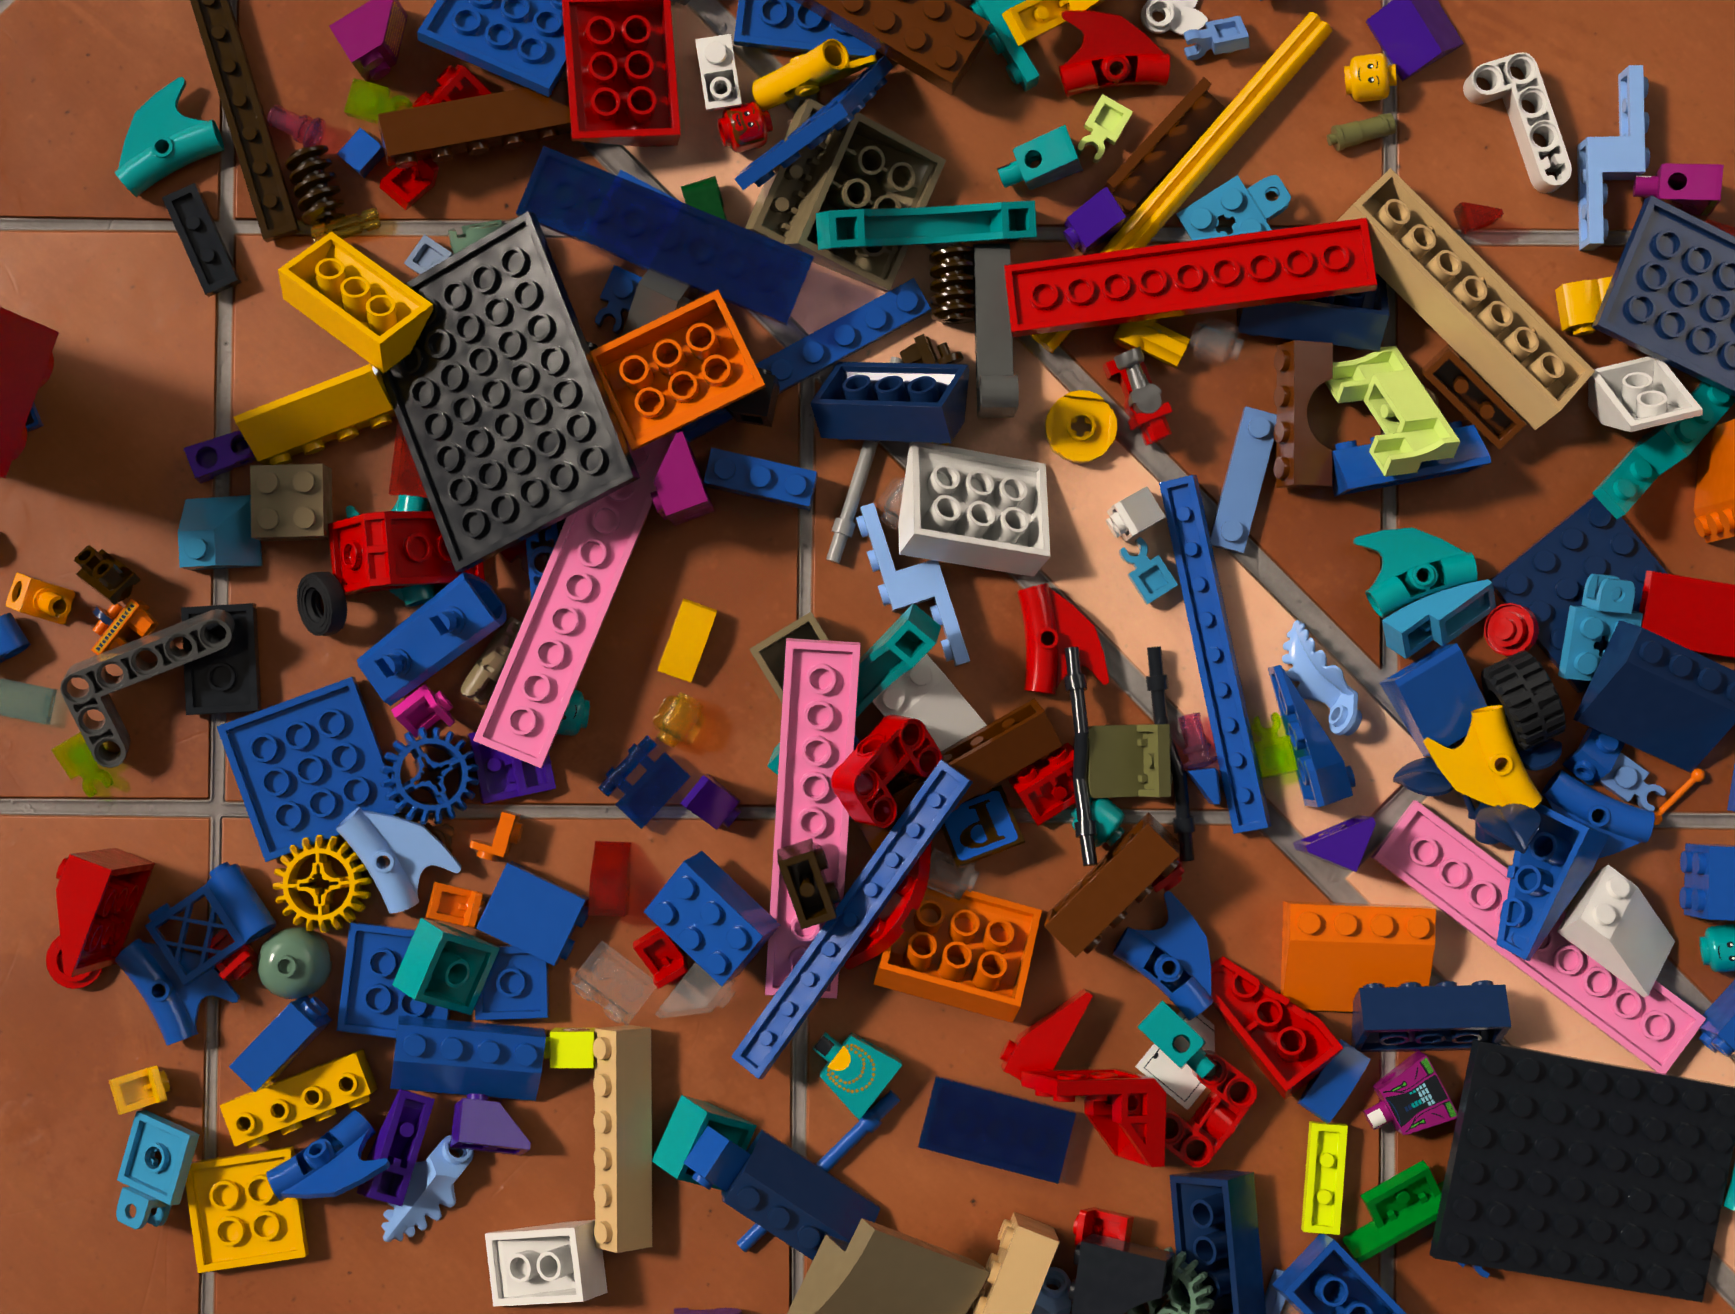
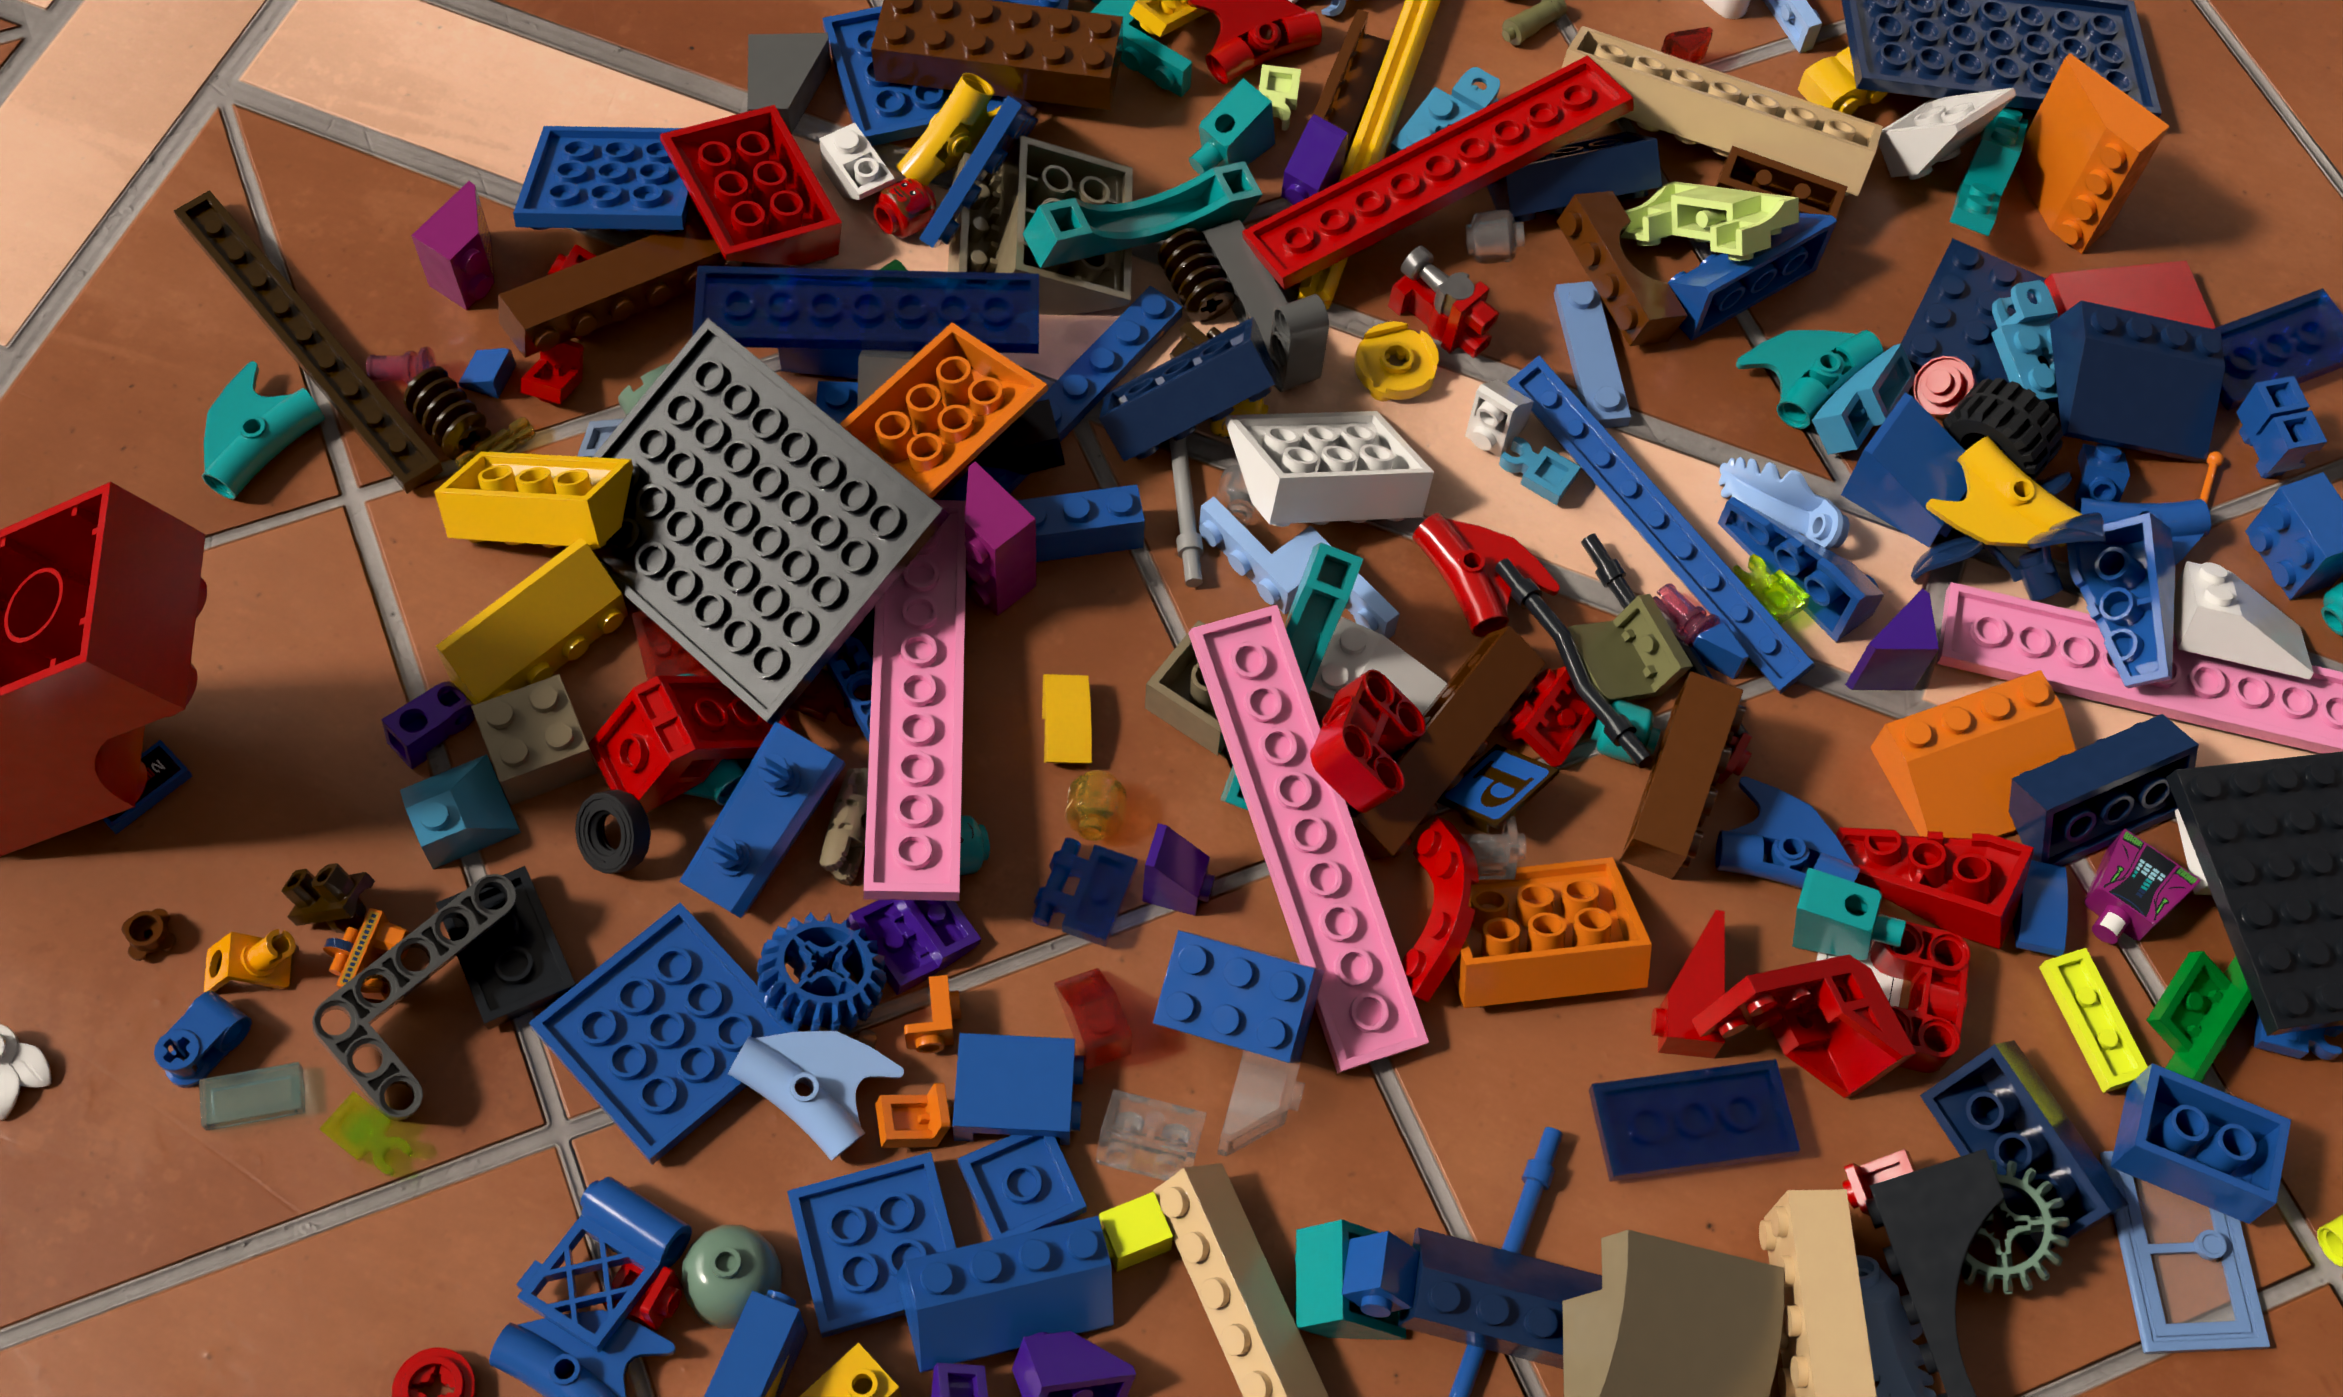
camera: 25 degrees left, 25 degrees down
(98, 905) = (454, 1257): red slope -> none
(201, 240) = (329, 513): black plate -> none
(322, 900) = (717, 1168): yellow gear -> none
(370, 99) = (475, 323): clear neon green plate -> none
(423, 710) = (783, 899): dark pink bracket -> none
(445, 967) = (932, 1184): teal slope -> none
(661, 957) = (1195, 1077): red bracket -> none
(806, 883) = (1338, 891): dark brown brick -> none
(854, 918) = (1404, 935): blue plate -> none
(856, 1070) = (1493, 1117): teal torso -> none
(1153, 340) = (1448, 255): yellow piece -> none
(1628, 781) = (2150, 486): medium blue plate -> none

